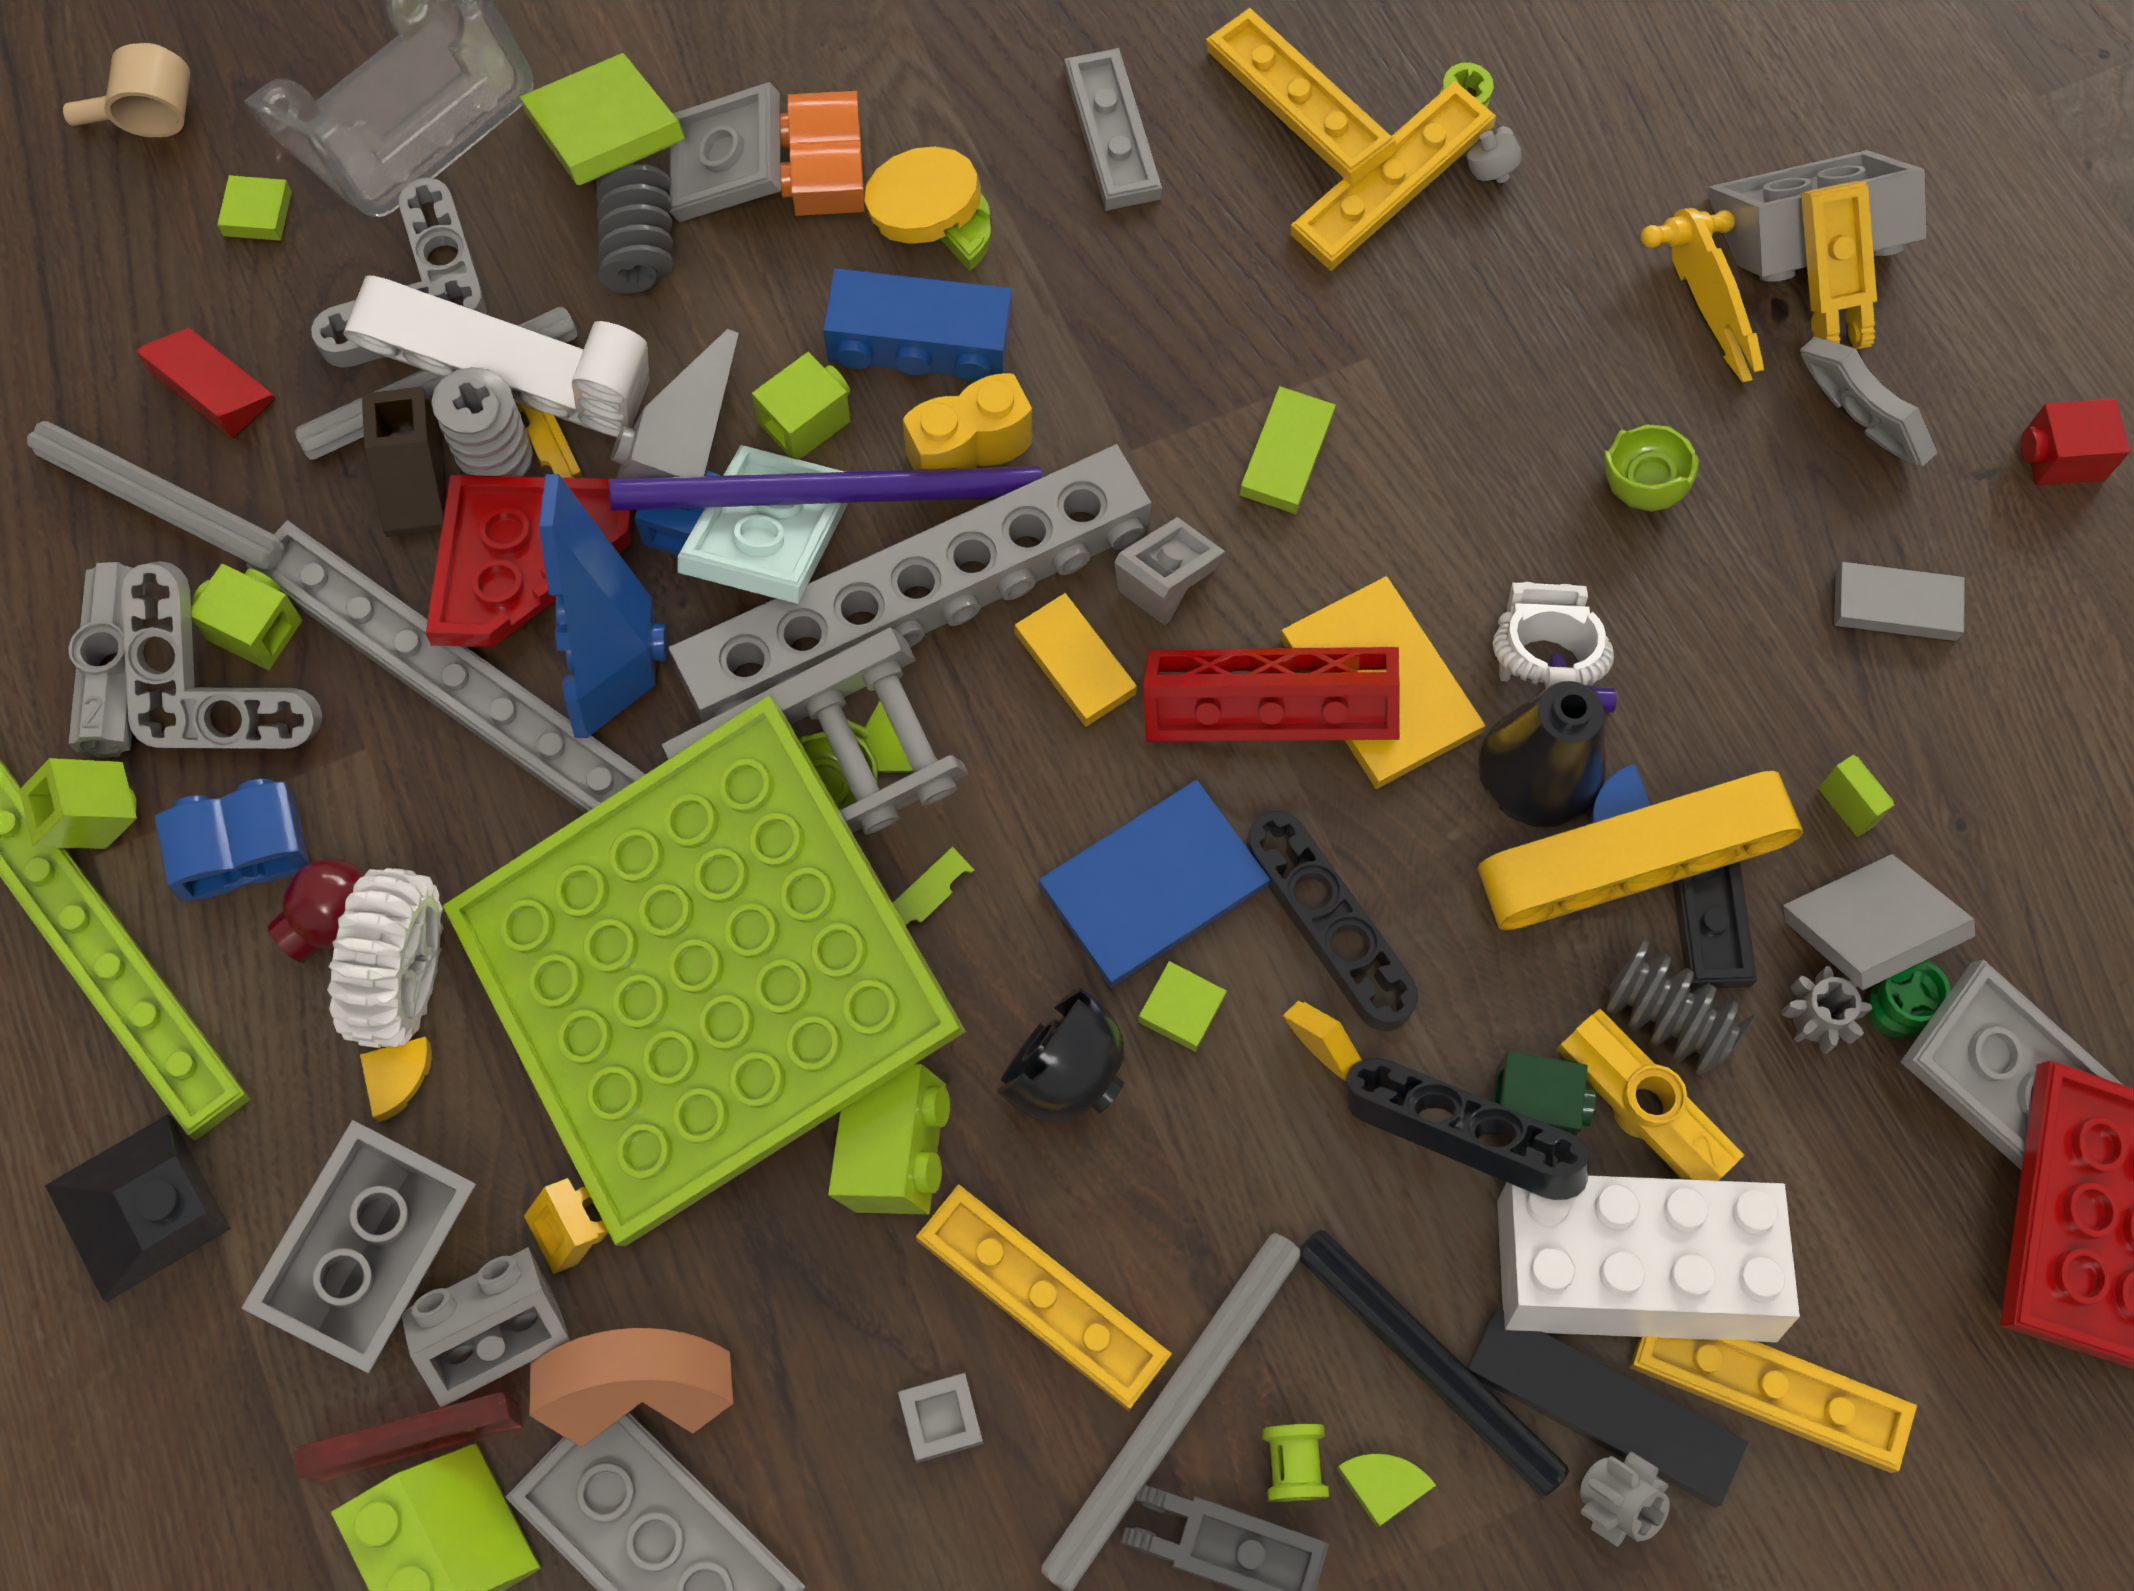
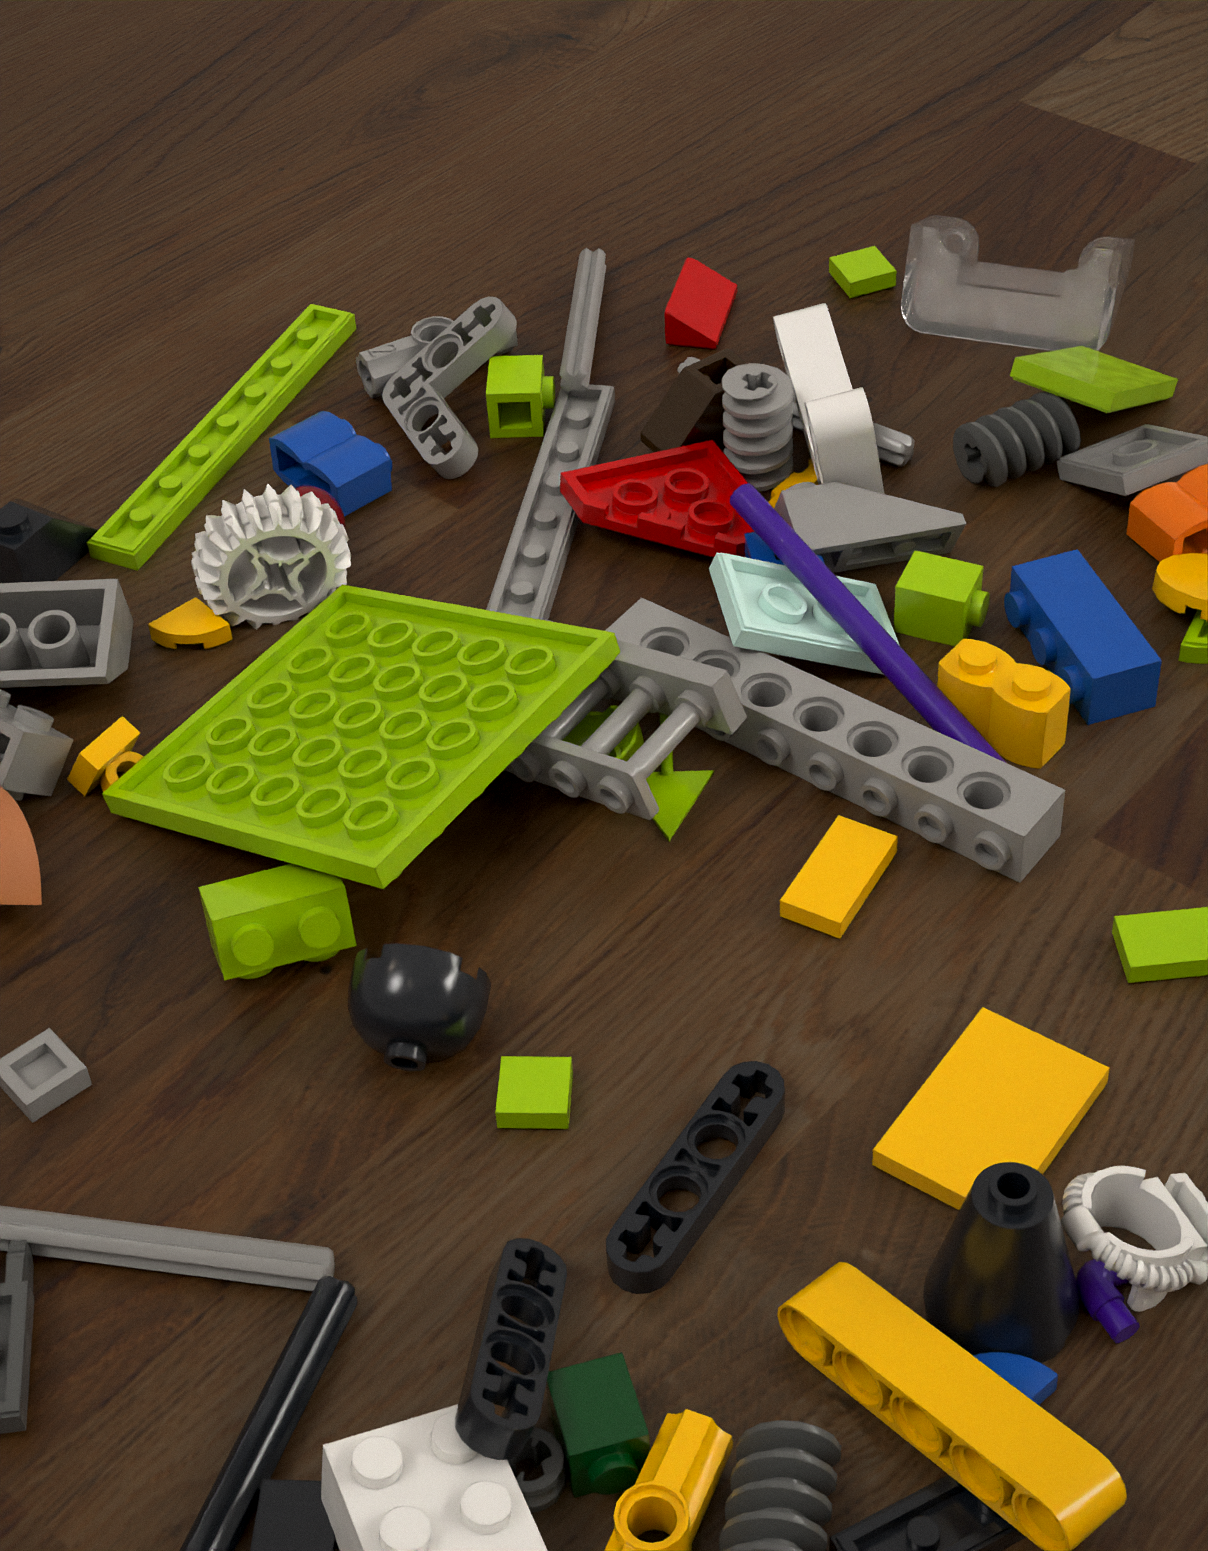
camera: 70 degrees right, 25 degrees down
(78, 803) = (310, 377): lime brick -> none
(143, 93) = (902, 179): tan piece -> none
(442, 281) = (929, 350): light grey beam -> none
(601, 614) = (626, 516): blue wedge -> none
(931, 887) = (536, 868): lime piece -> none
(1044, 1297) = (187, 1108): yellow tile -> none
(1153, 883) = (648, 1021): blue tile -> none
(1163, 566) = (971, 878): light grey slope -> none
(1272, 699) = (901, 1019): red fence -> none
(1295, 1462) = (97, 1358): lime bush -> none
(1323, 1037) = (559, 1199): yellow tile -> none
(1384, 1484) = (107, 1457): lime tile -> none

